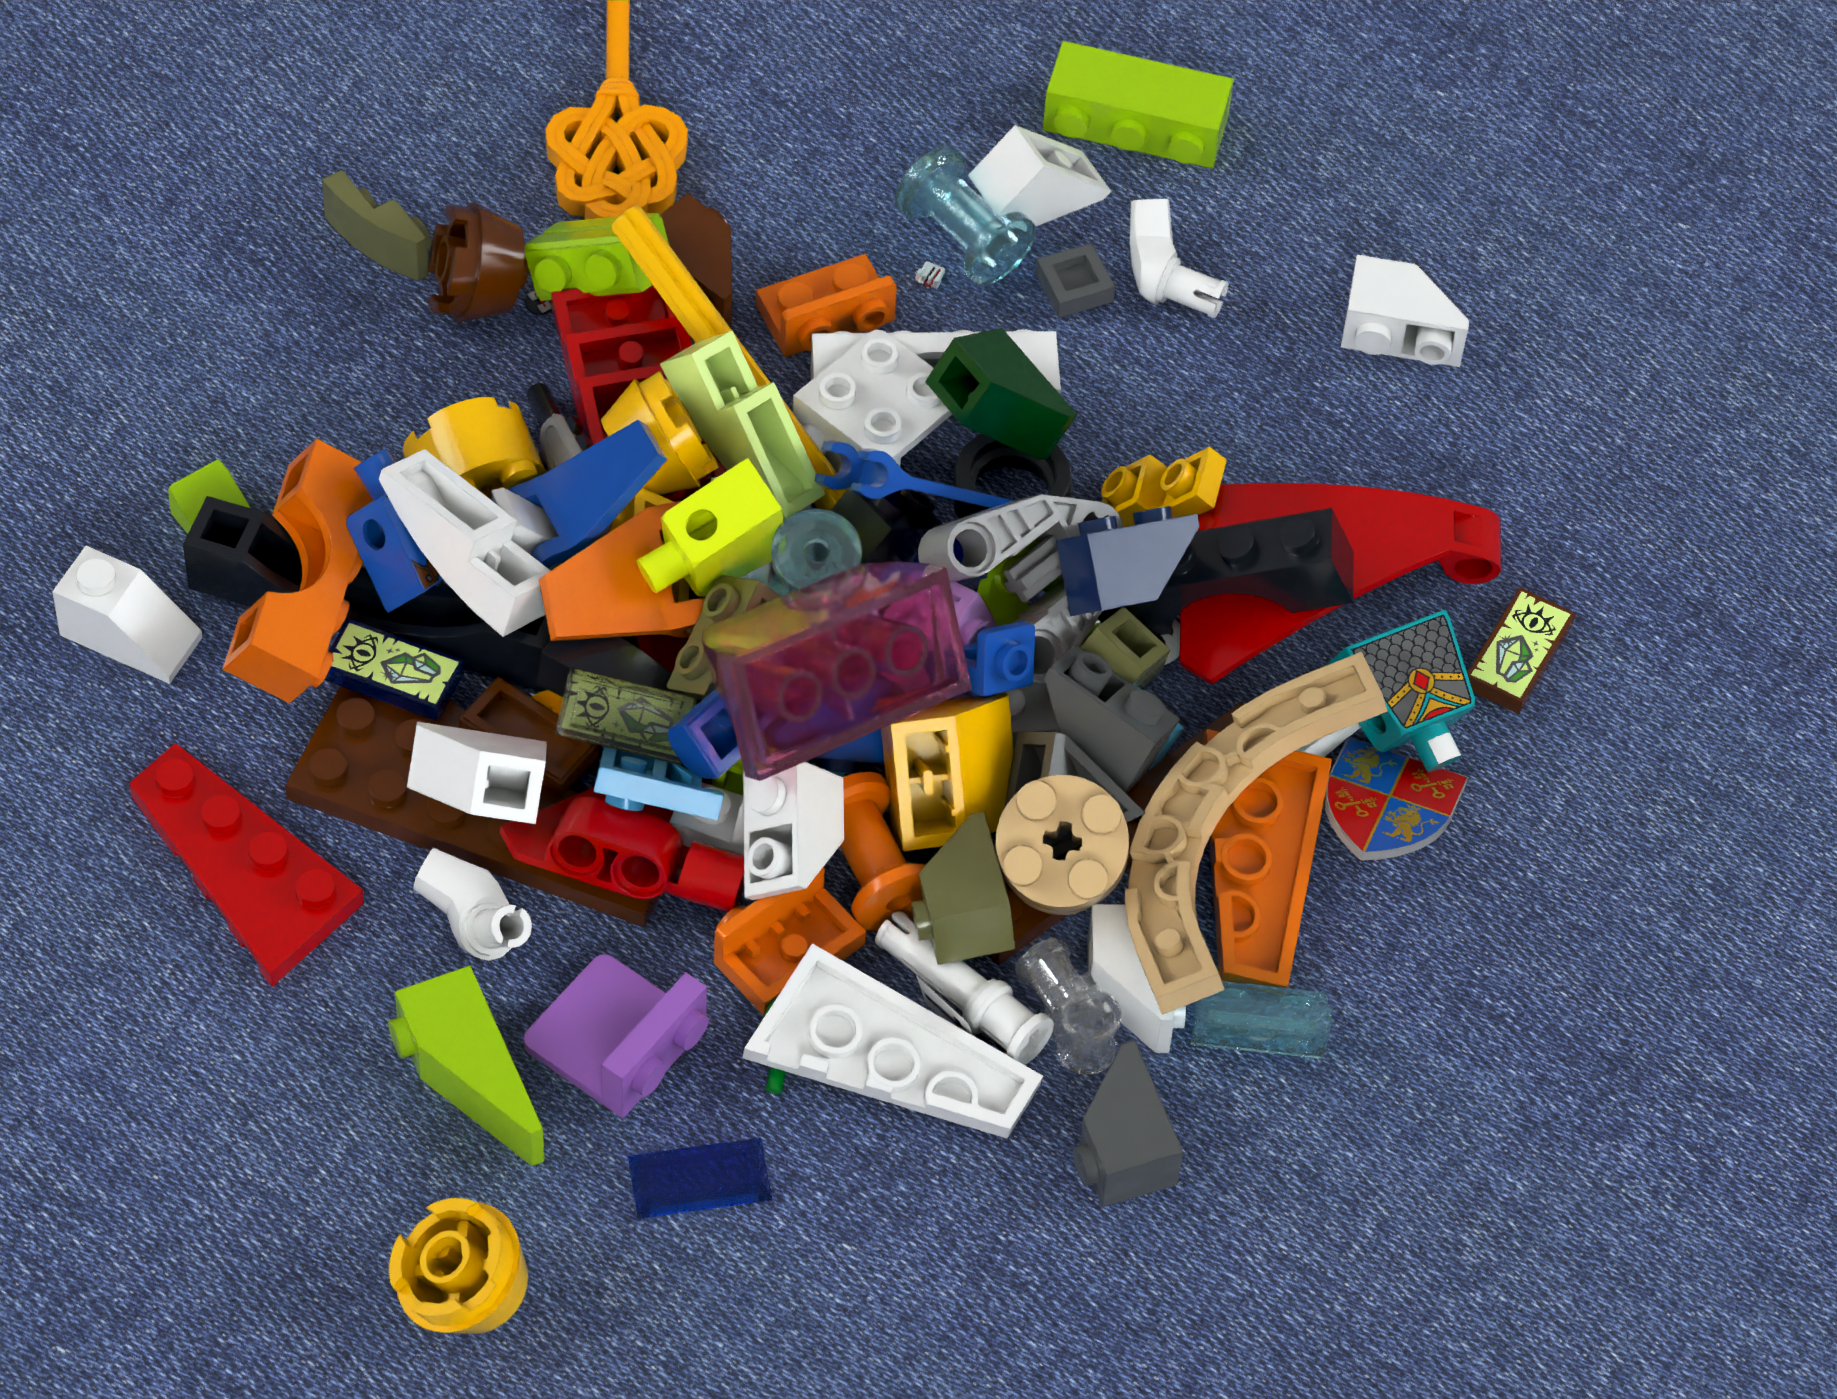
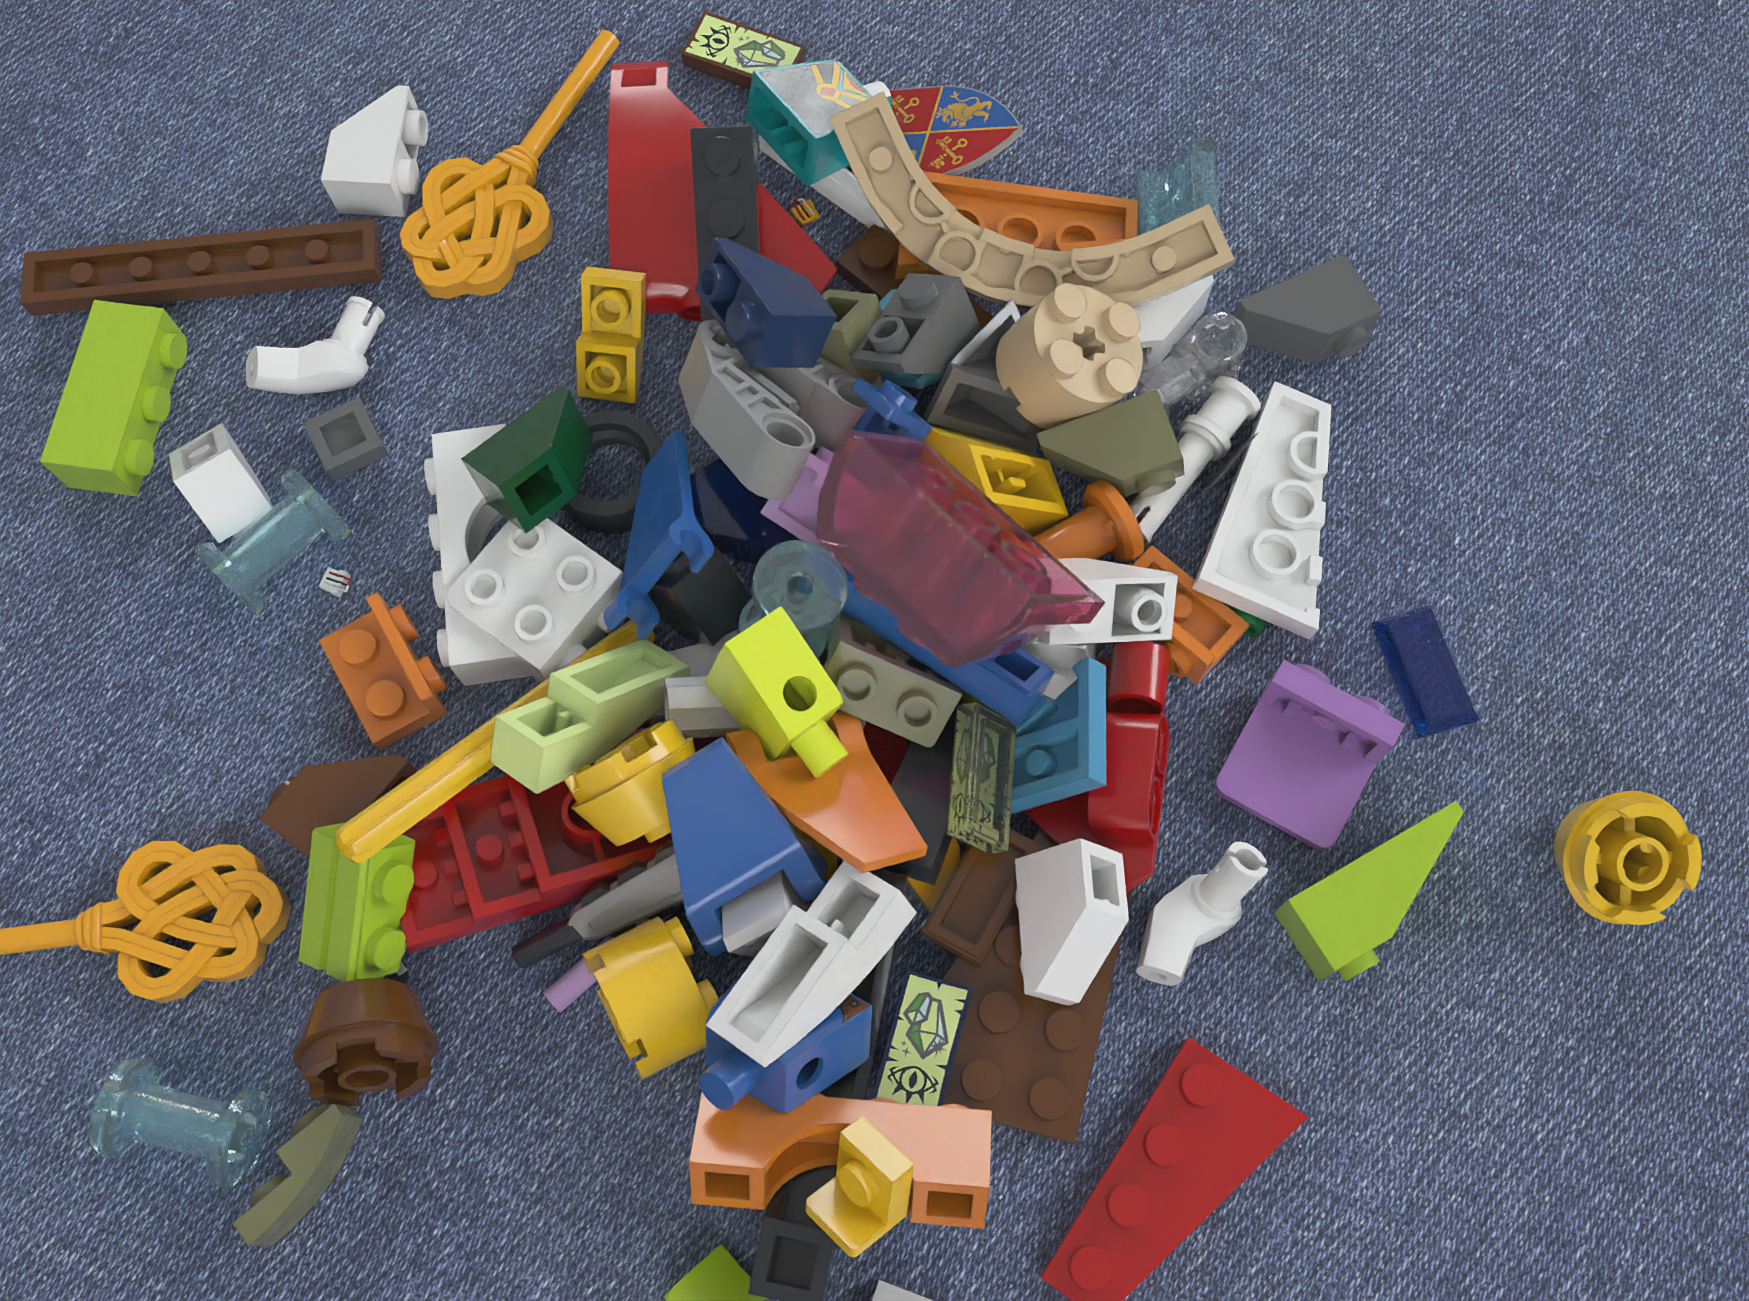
camera: 90 degrees left, 15 degrees up
(265, 566) = (866, 1193): none -> yellow bracket
(451, 114) = (139, 1109): none -> clear light blue piece
(1282, 177) = (202, 266): none -> reddish brown plate
(1348, 412) = (473, 198): none -> light orange piece

